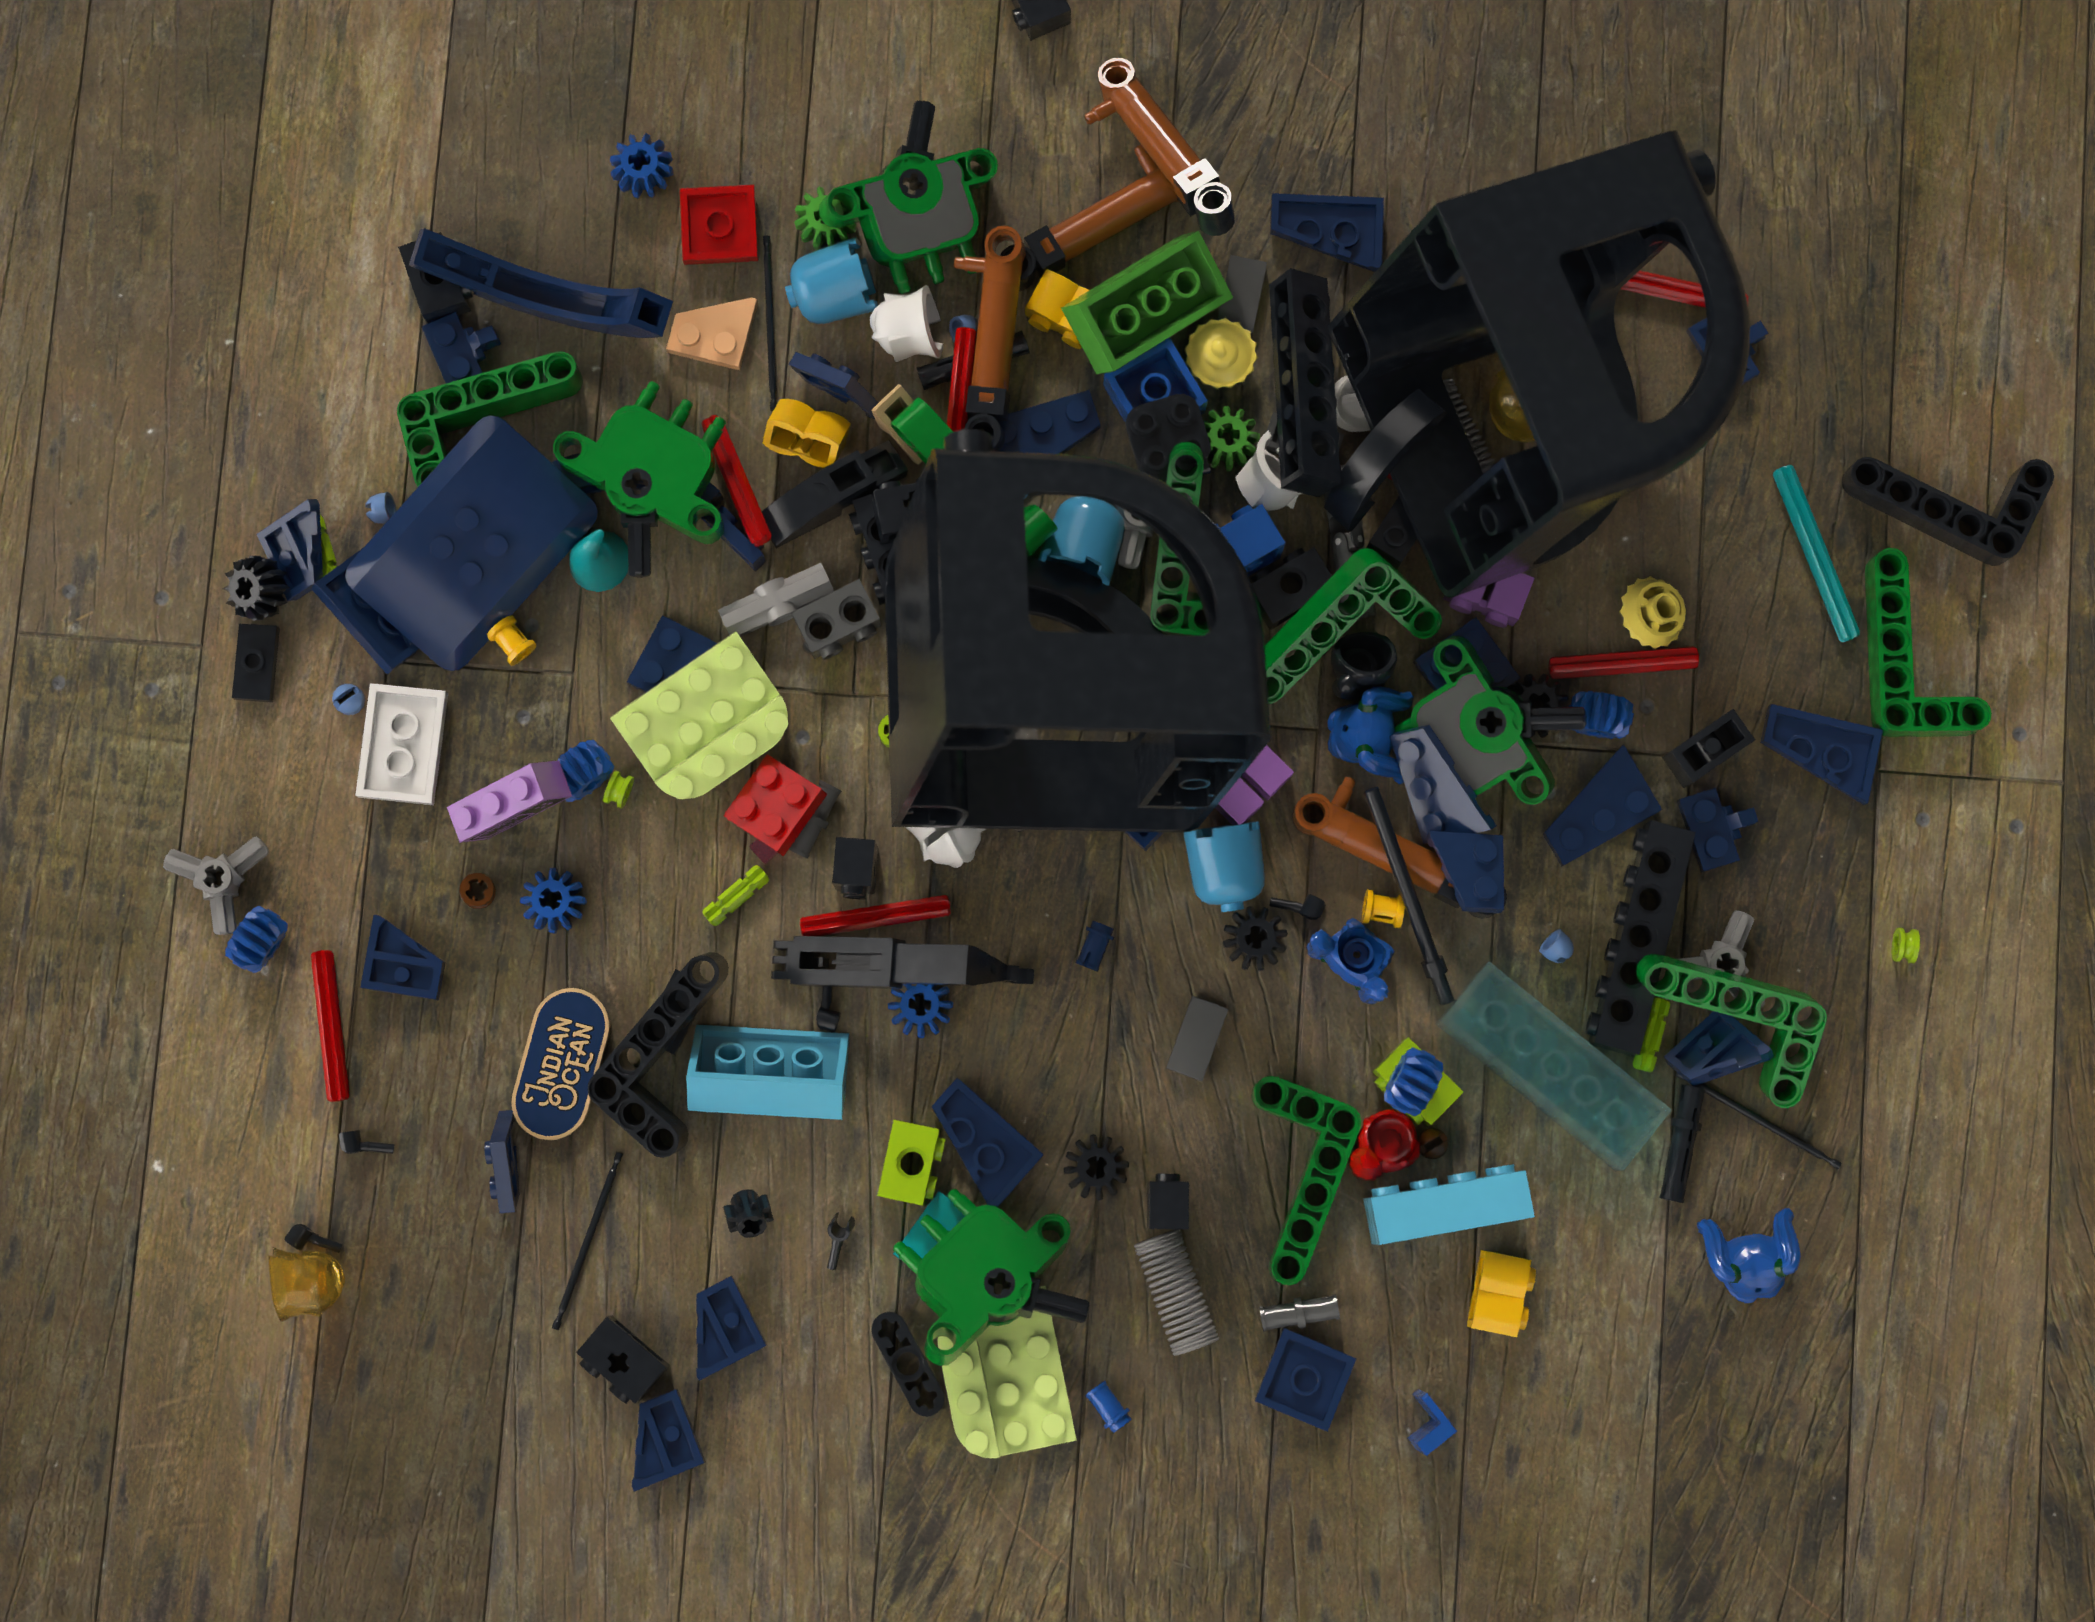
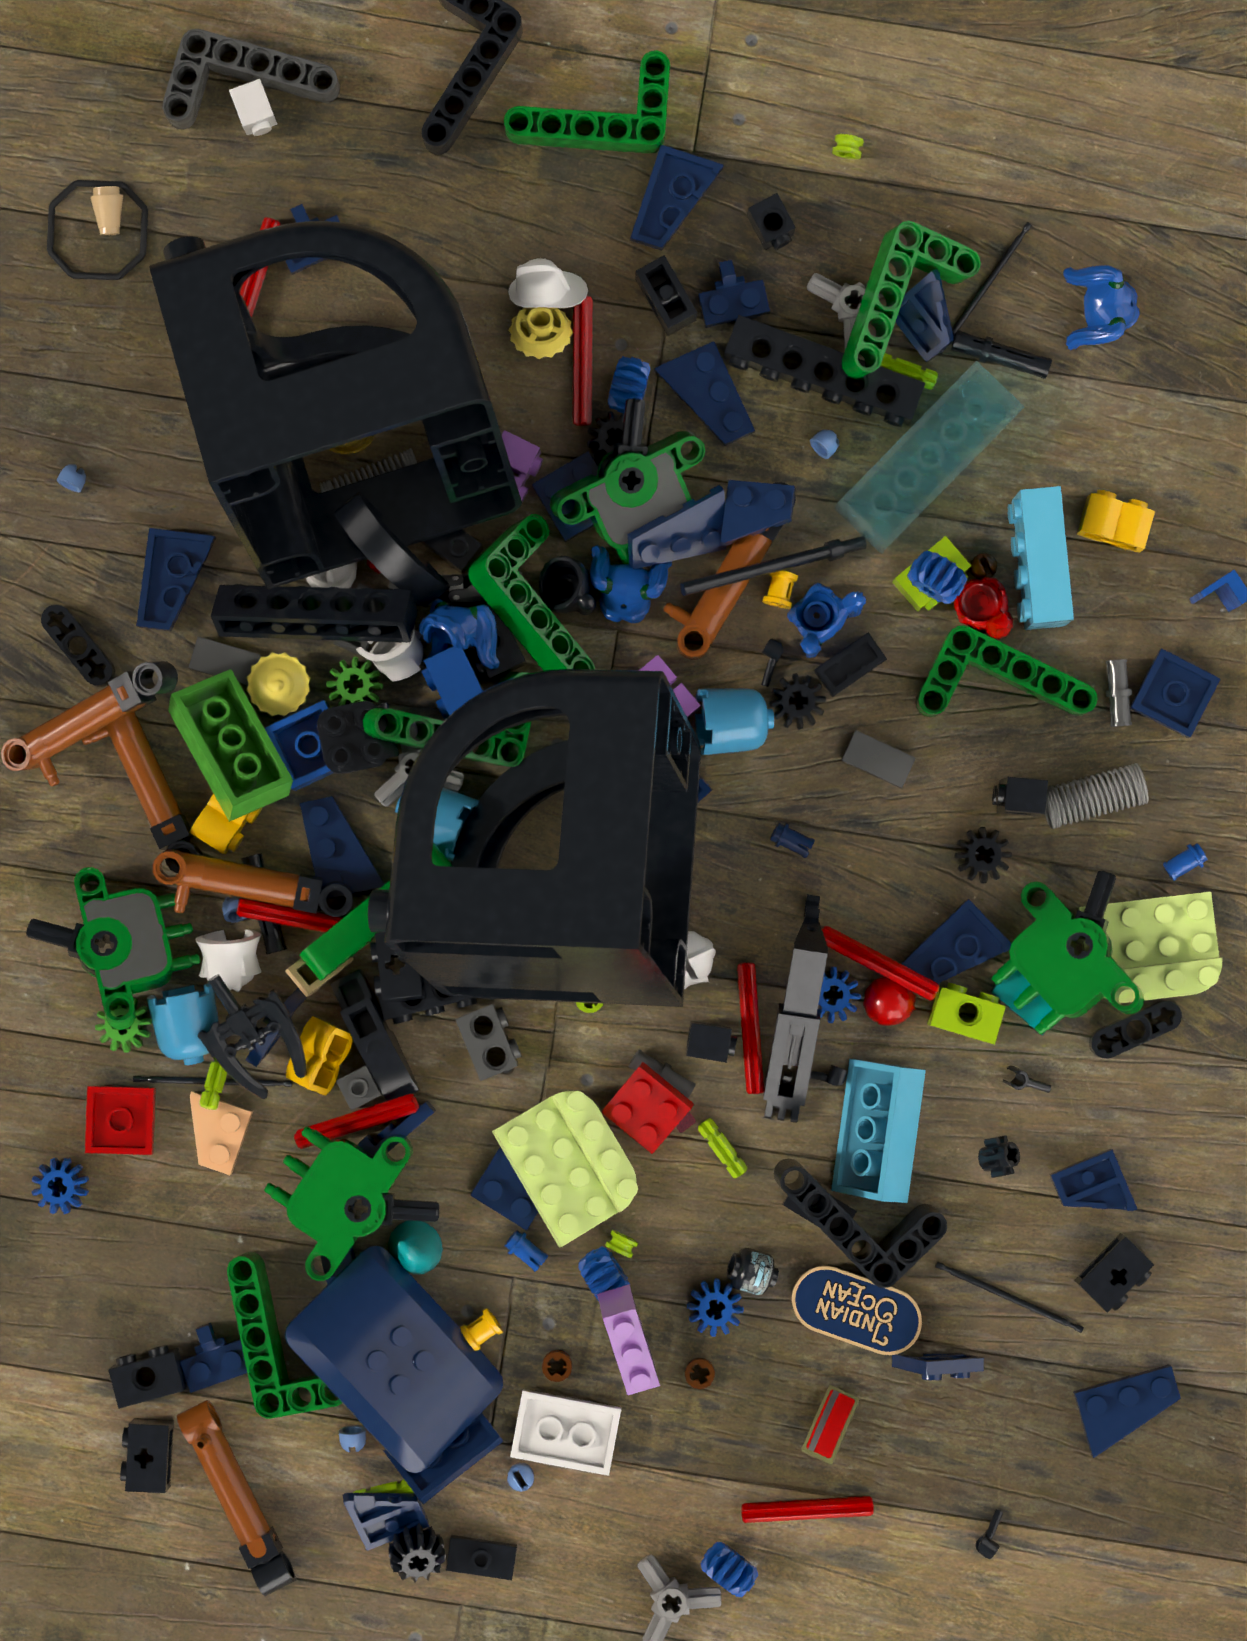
camera: 80 degrees left, 5 degrees up
(257, 415) = (258, 1541): none -> dark orange piece
(304, 1283) = (1030, 1543): clear yellow helmet -> none
(351, 1143) = (910, 1496): black hand -> none
(365, 296) = (158, 1438): none -> black brick
(400, 963) = (759, 1444): dark blue wing -> none
(427, 1043) = (830, 1424): none -> slope
(464, 730) = (557, 1355): none -> reddish brown bush
(471, 1384) = (1123, 1405): none -> dark blue wing
(579, 305) = (171, 1282): dark blue arch -> none
(597, 939) = (752, 1271): none -> head
(604, 682) = (525, 1250): none -> blue pin
(664, 1441) = (1185, 1242): dark blue wing -> none
(772, 478) = (358, 1087): none -> dark grey brick
(774, 324) = (213, 1085): none -> lime axle
(776, 600) = (466, 1093): light grey piece -> none
(836, 340) = (243, 1022): none -> black bar
(919, 1074) = (888, 1002): none -> red hair
(961, 1055) = (880, 963): none -> red axle
(1255, 108) = (70, 621): none -> black beam
(1303, 996) = (850, 664): none -> black plate
(1304, 546) = (463, 629): none -> blue hair
(1429, 111) = (71, 479): none -> medium blue hinge
(1704, 612) = (545, 285): none -> white piece
(1718, 65) = (100, 276): none -> black piece
(1738, 123) = (107, 209): none -> tan cone
(1816, 553) = (499, 183): teal axle -> none
(1822, 859) = (771, 208): none -> black brick
(1871, 271) = (253, 108): none -> white brick
(1915, 254) = (240, 68): none -> dark grey beam

